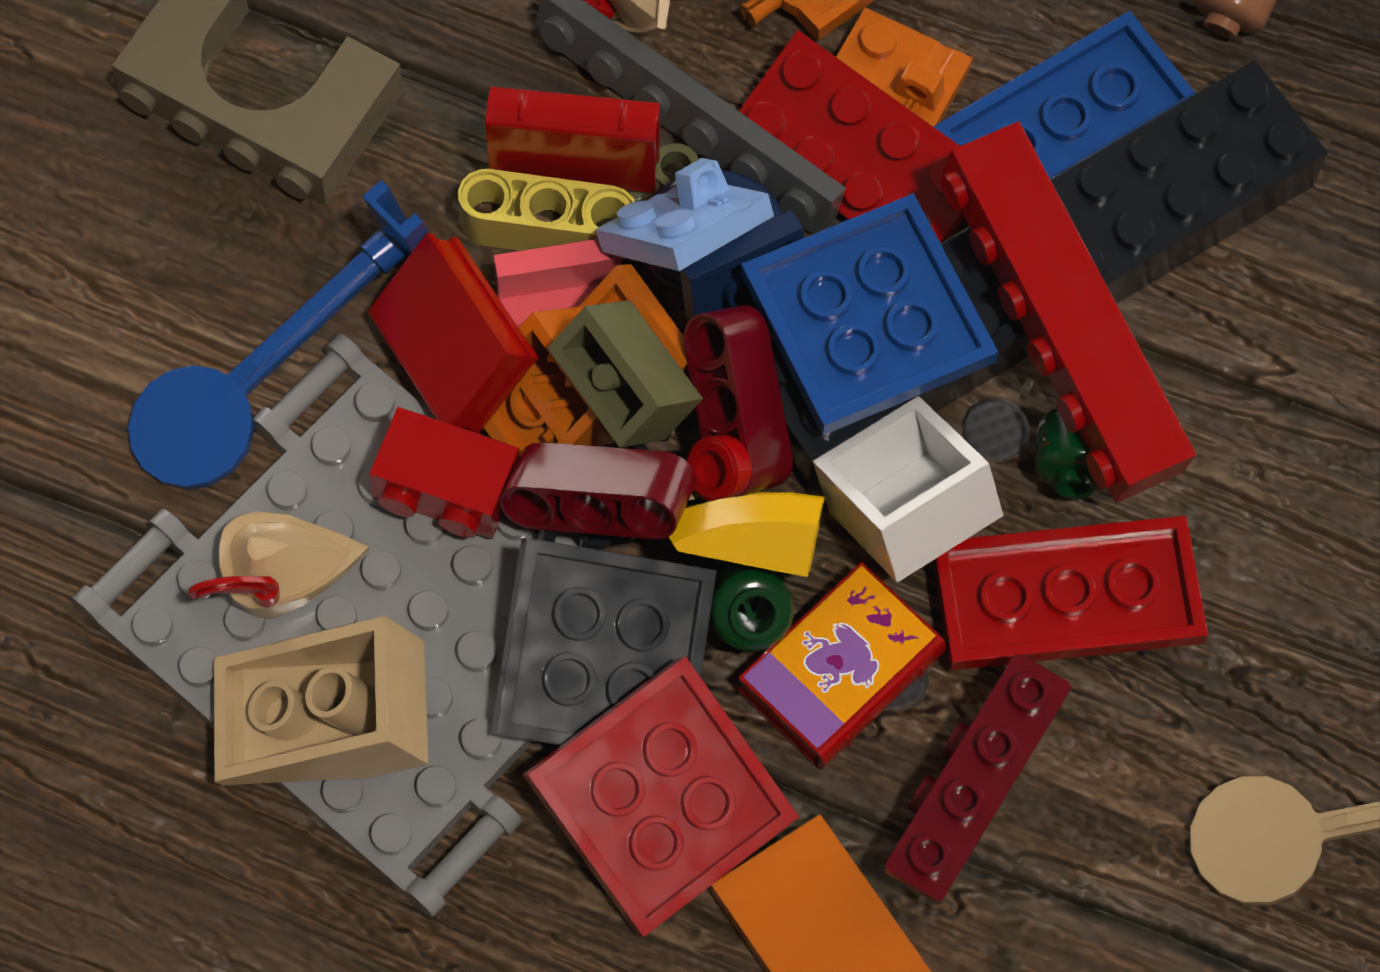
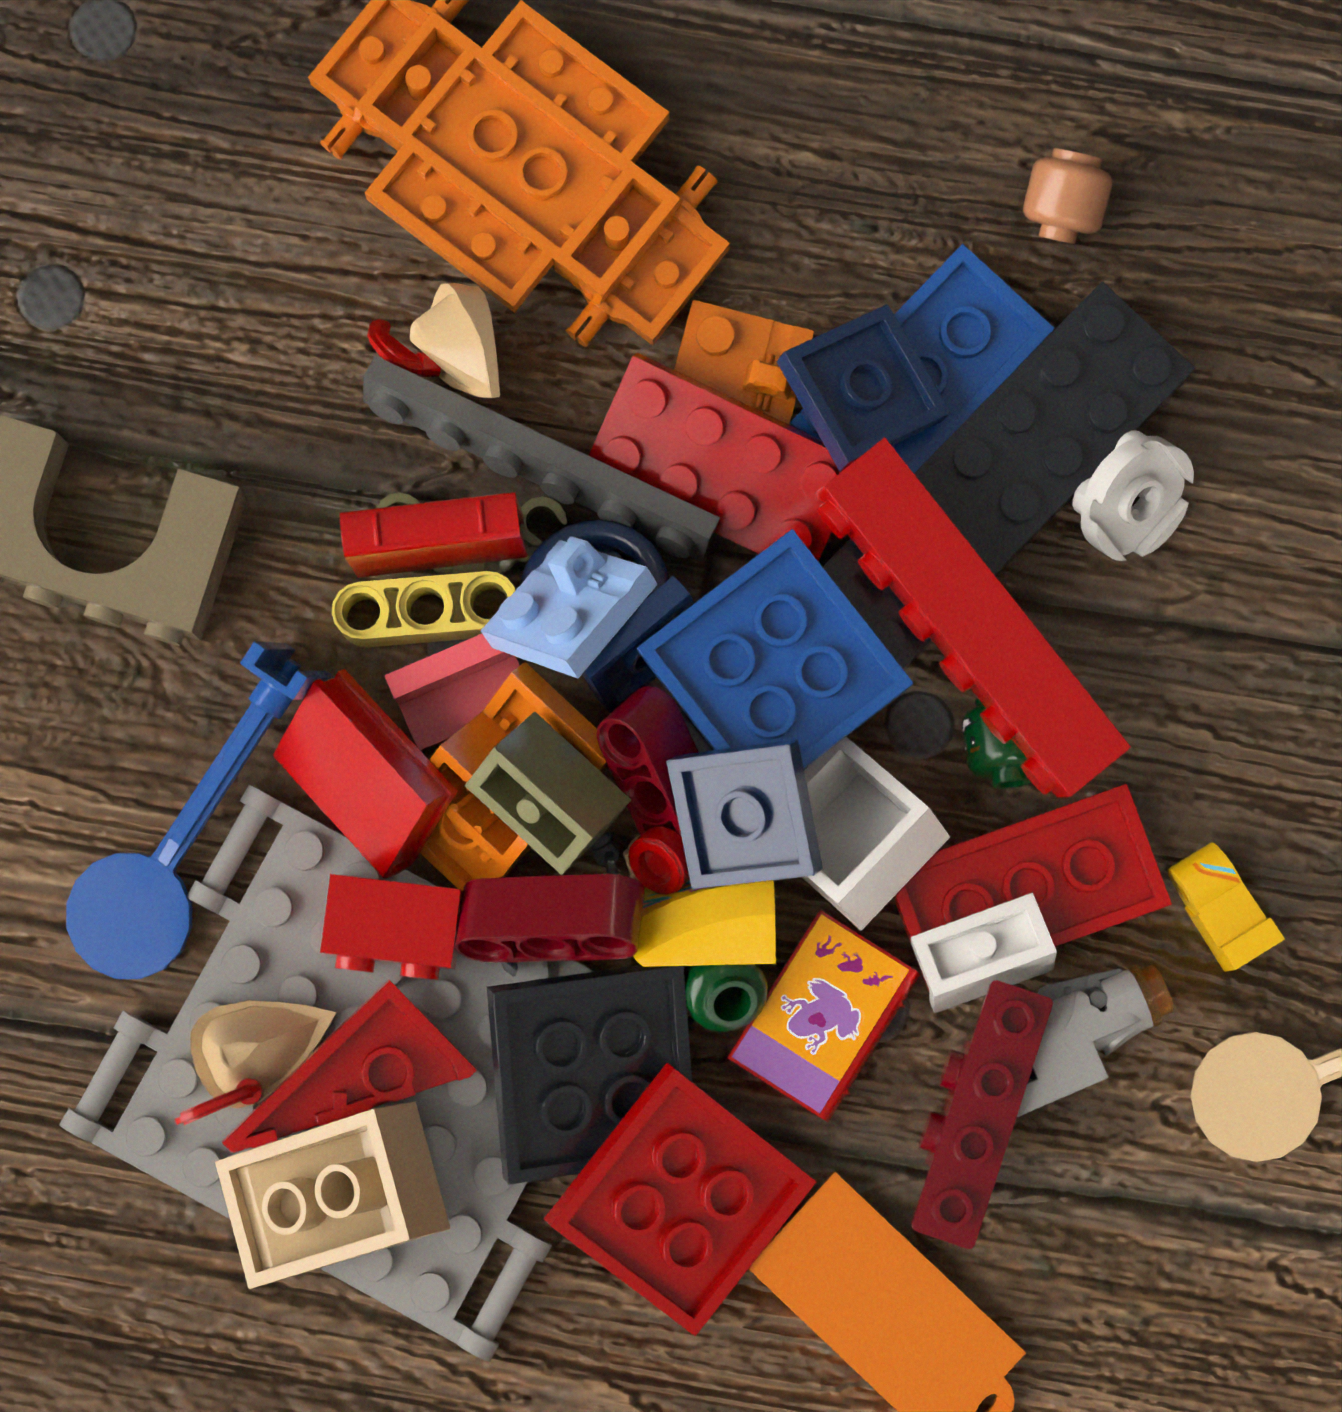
camera: 10 degrees left, 15 degrees up
(403, 579) = (369, 1060): none -> red wing
(809, 426) = (745, 814): none -> plate
(995, 627) = (991, 945): none -> white panel
(1009, 83) = (862, 386): none -> dark blue hinge
(1095, 725) = (1090, 1017): none -> light grey plate
(1224, 240) = (1135, 467): none -> white plate
(1258, 655) = (1223, 908): none -> yellow leg

